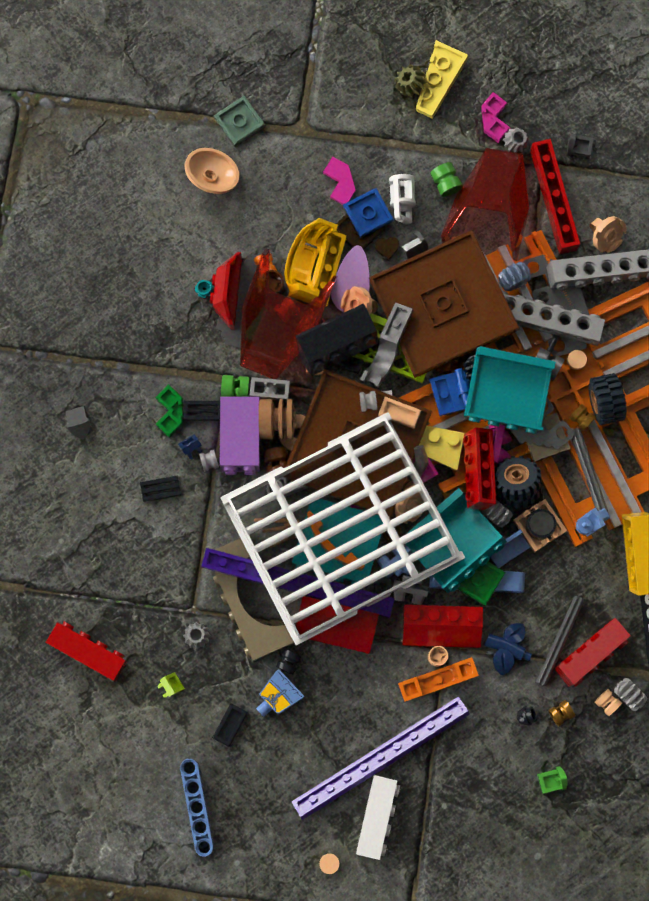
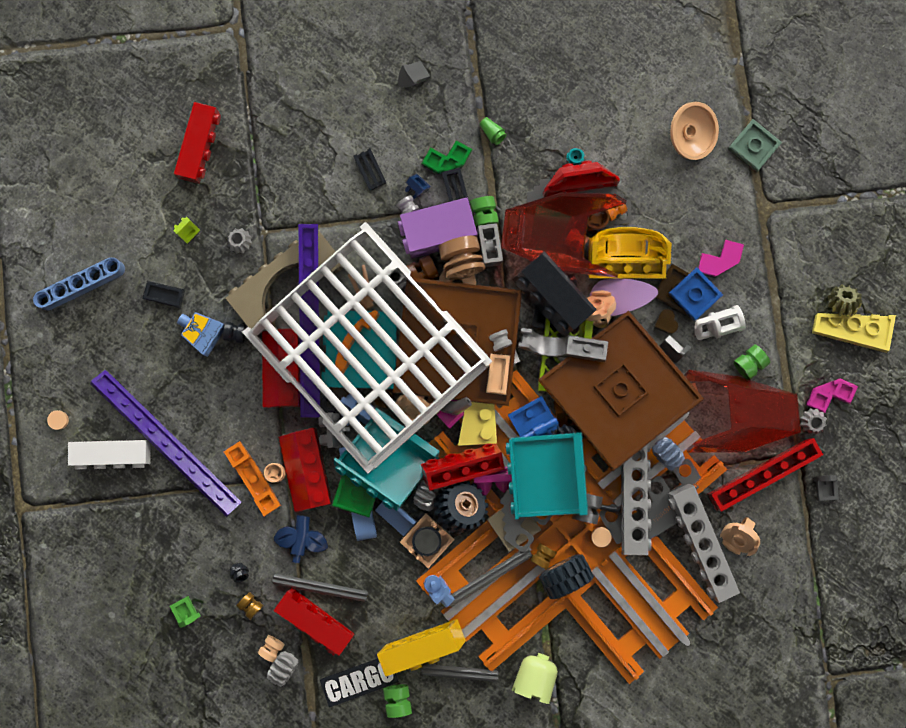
camera: 80 degrees right, 5 degrees up
(157, 359) = (493, 131): none -> bright green cone

